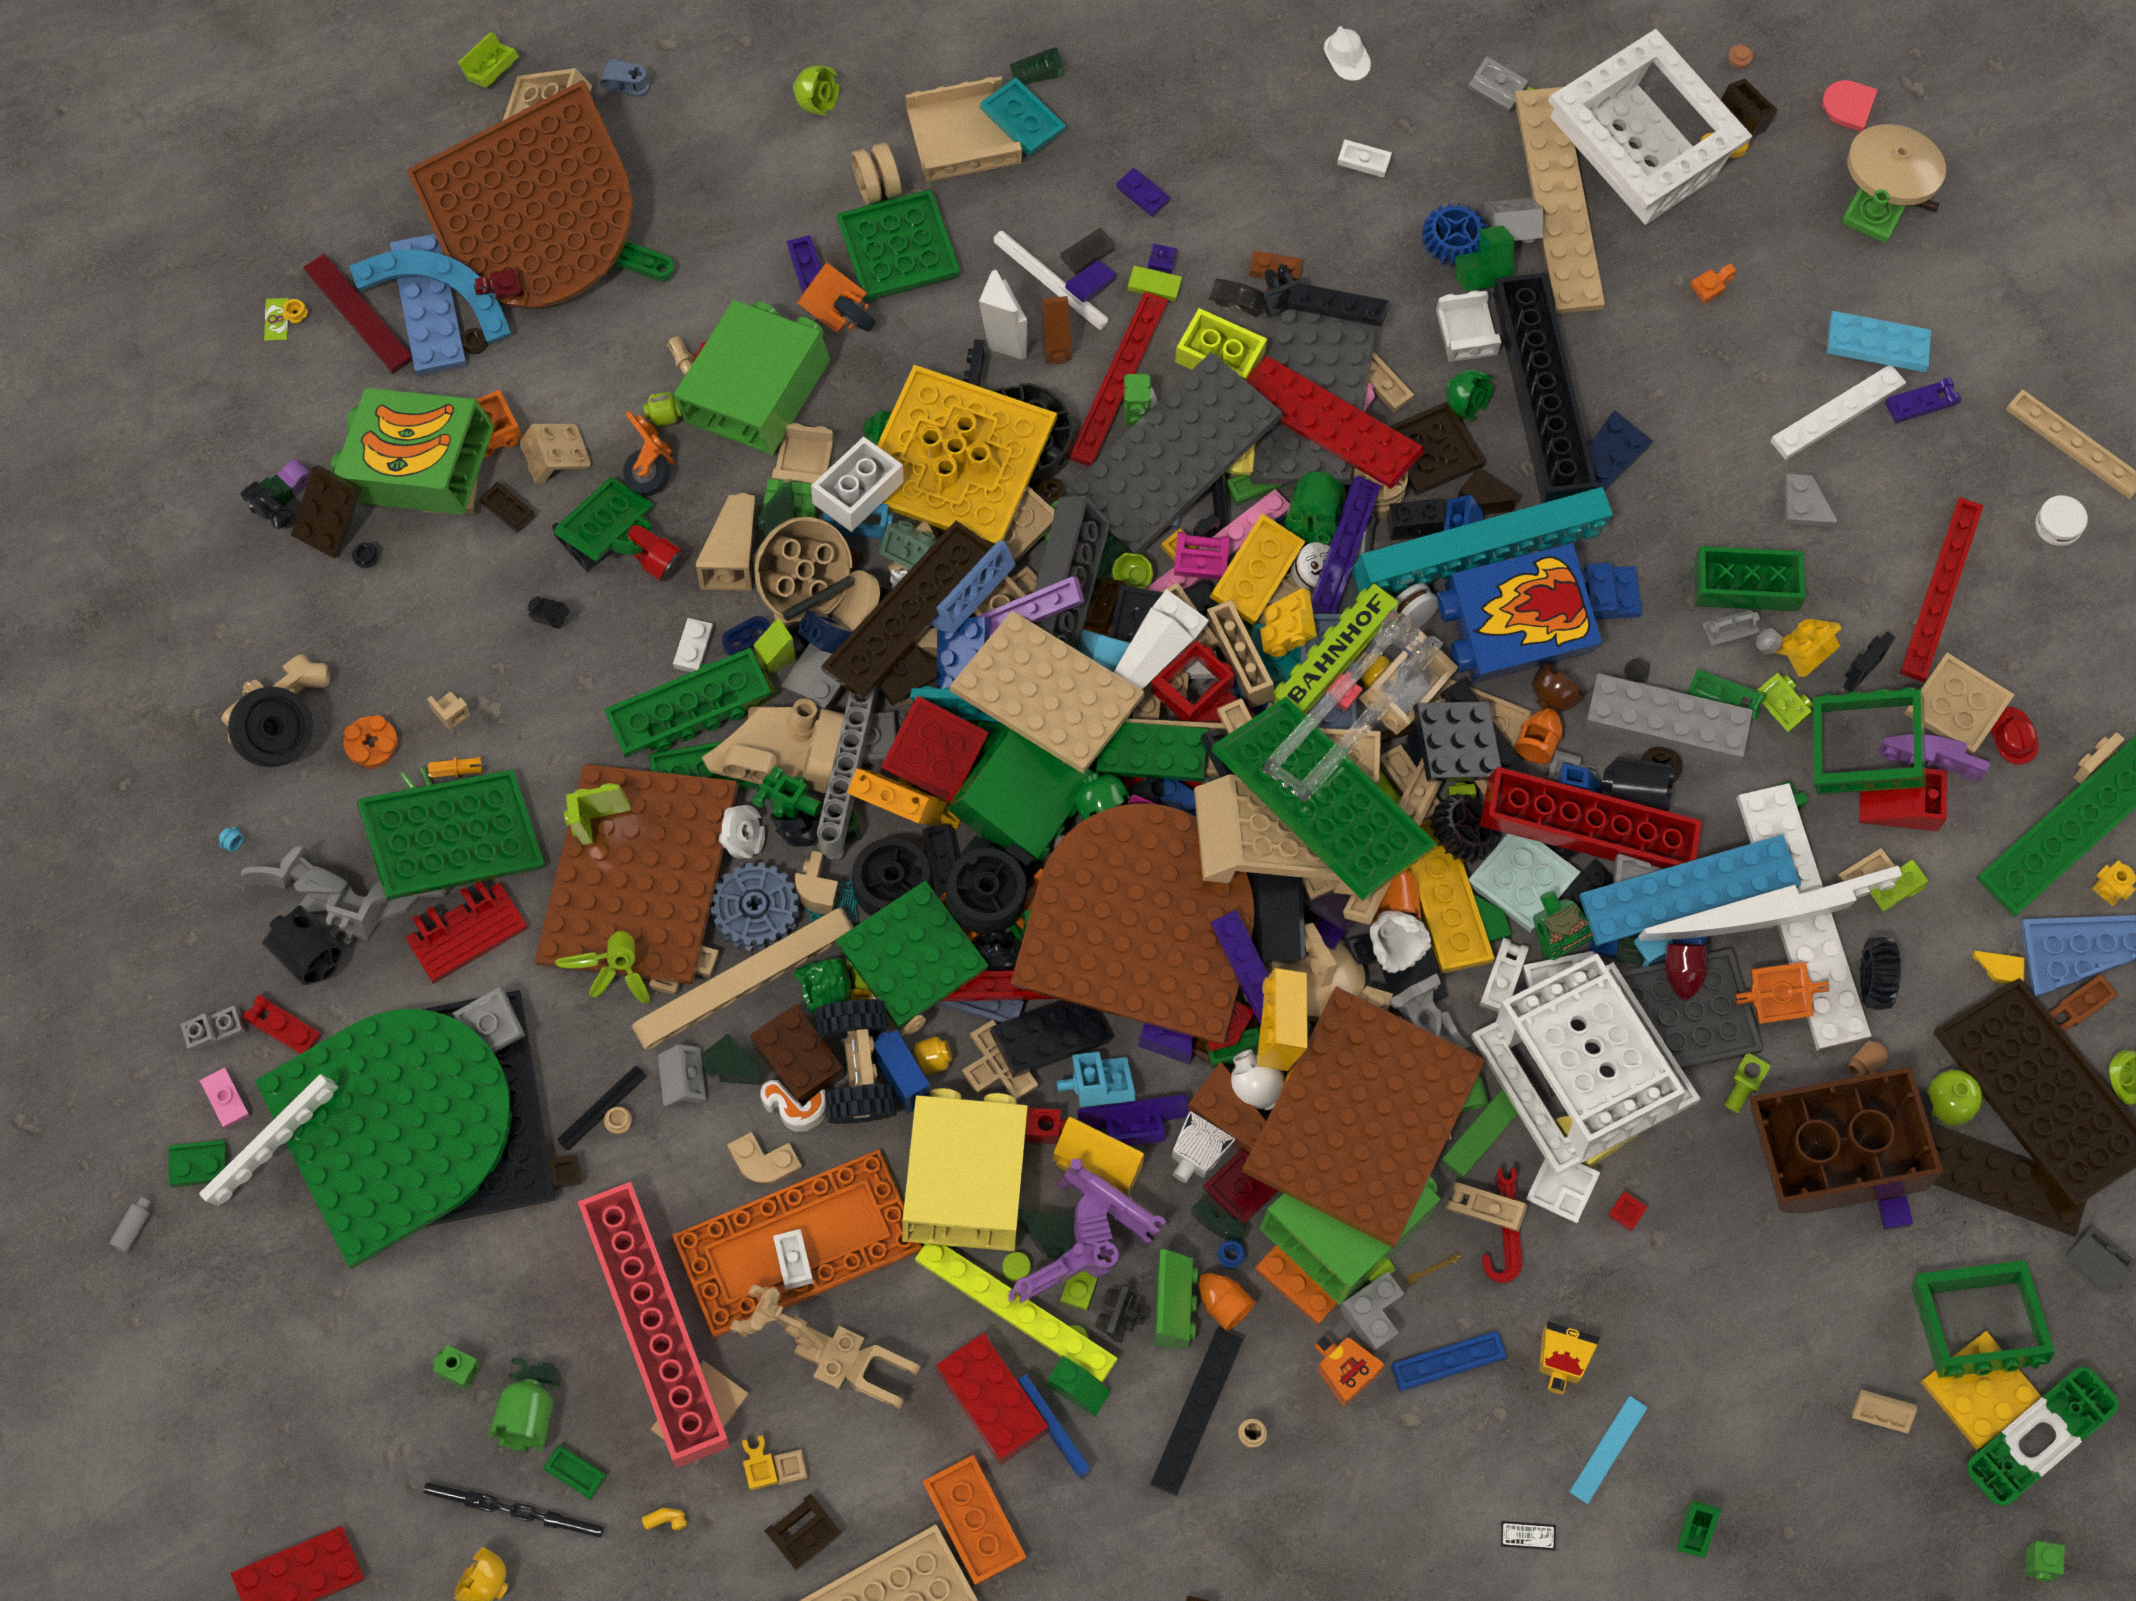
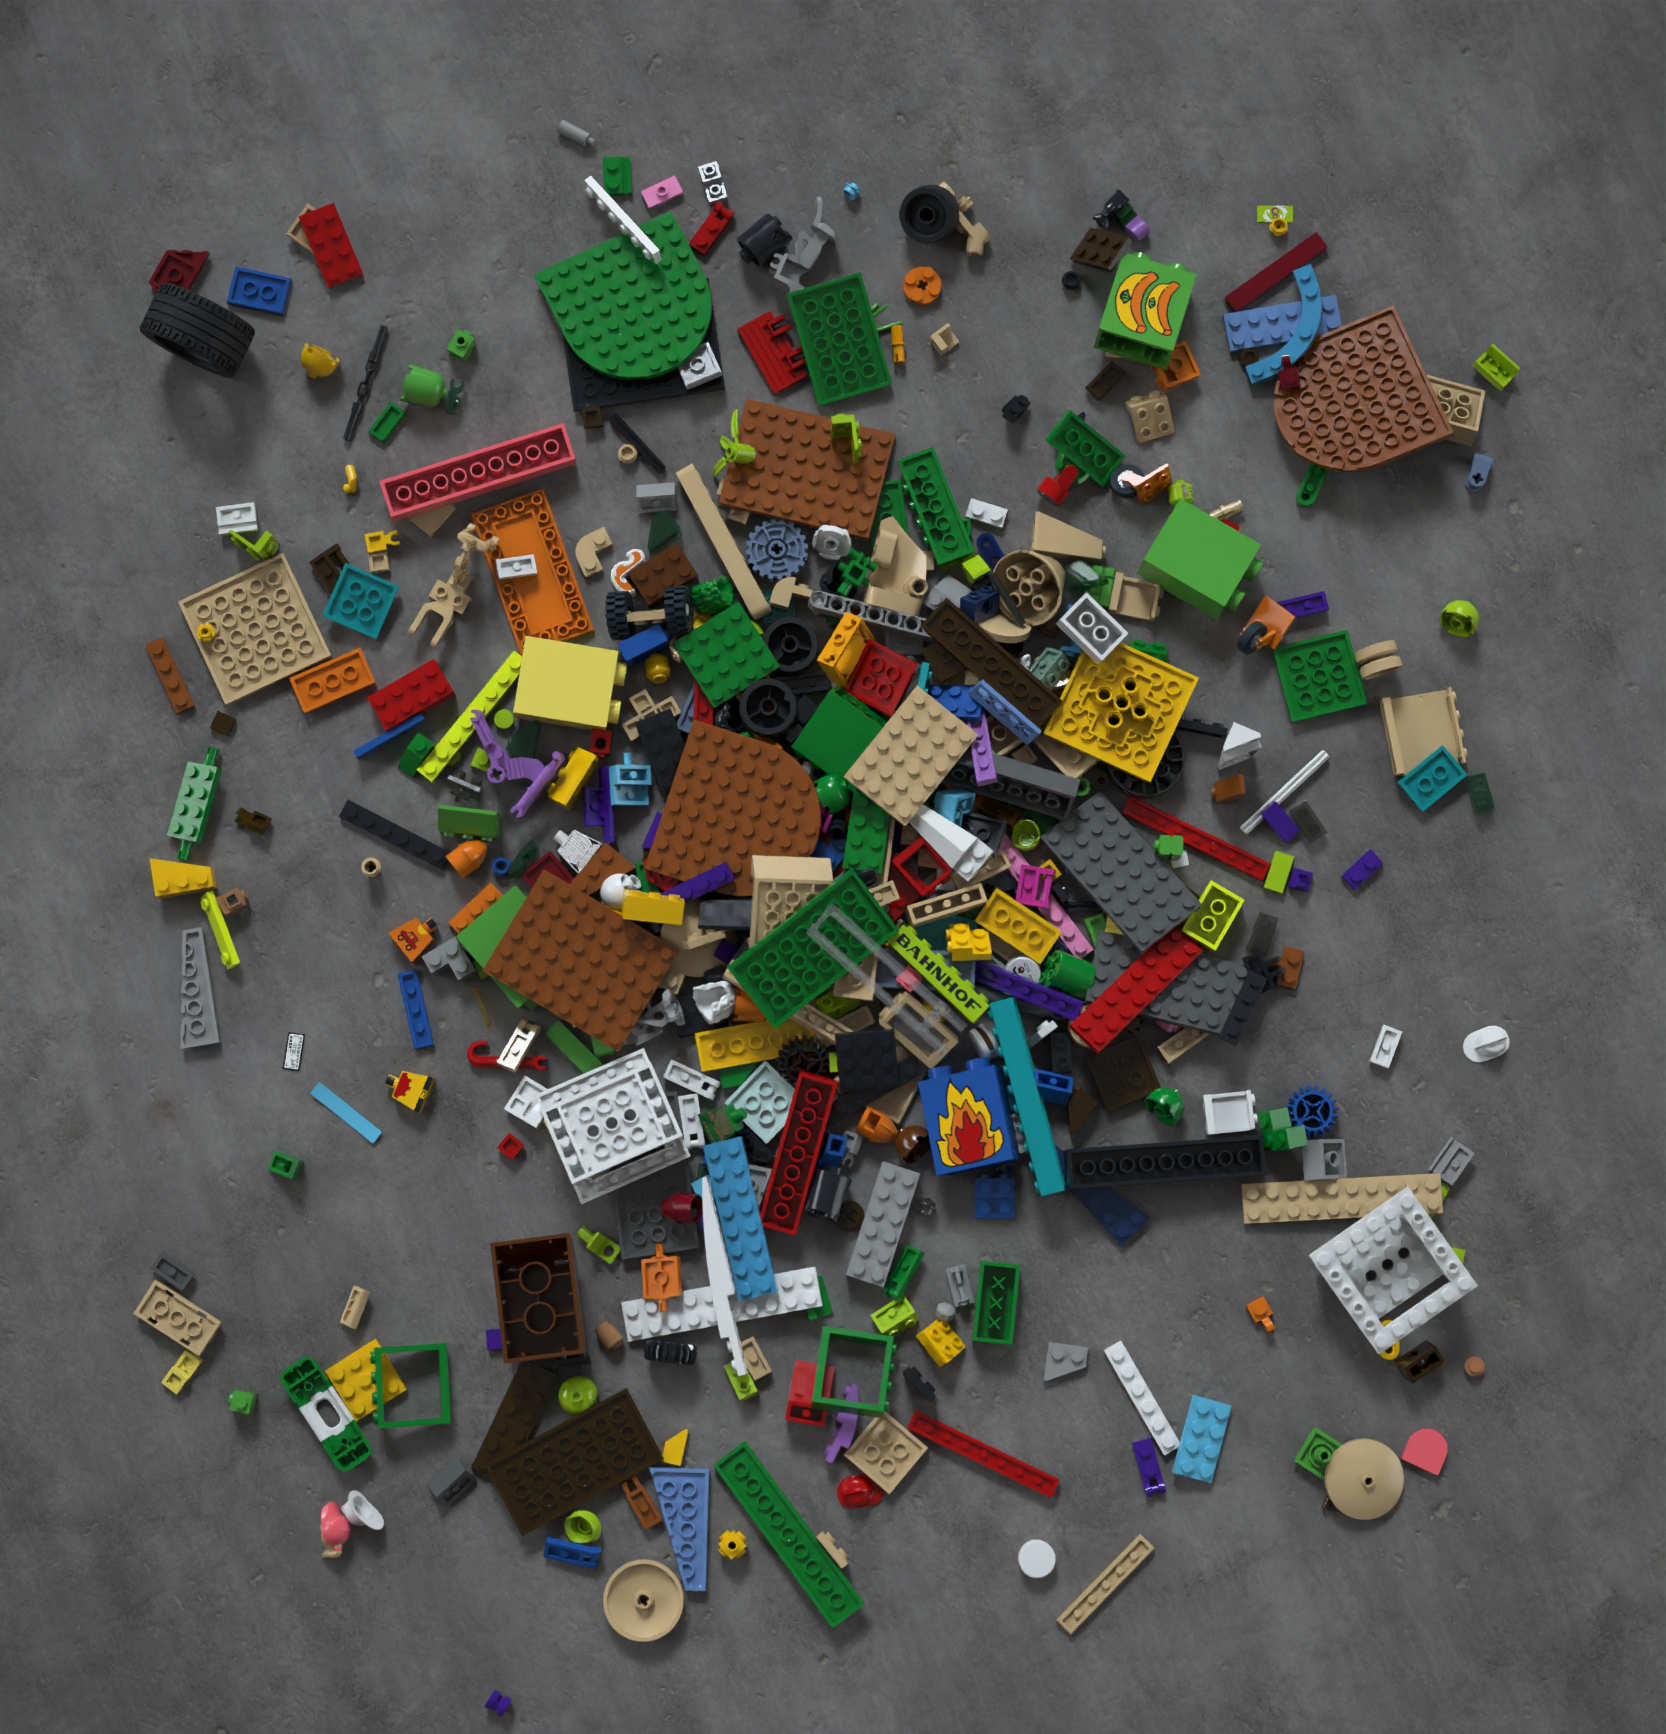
camera: 100 degrees right, 15 degrees up
(852, 1484) = (360, 601): none -> teal plate
(1390, 531) = (1043, 1030): none -> white wing

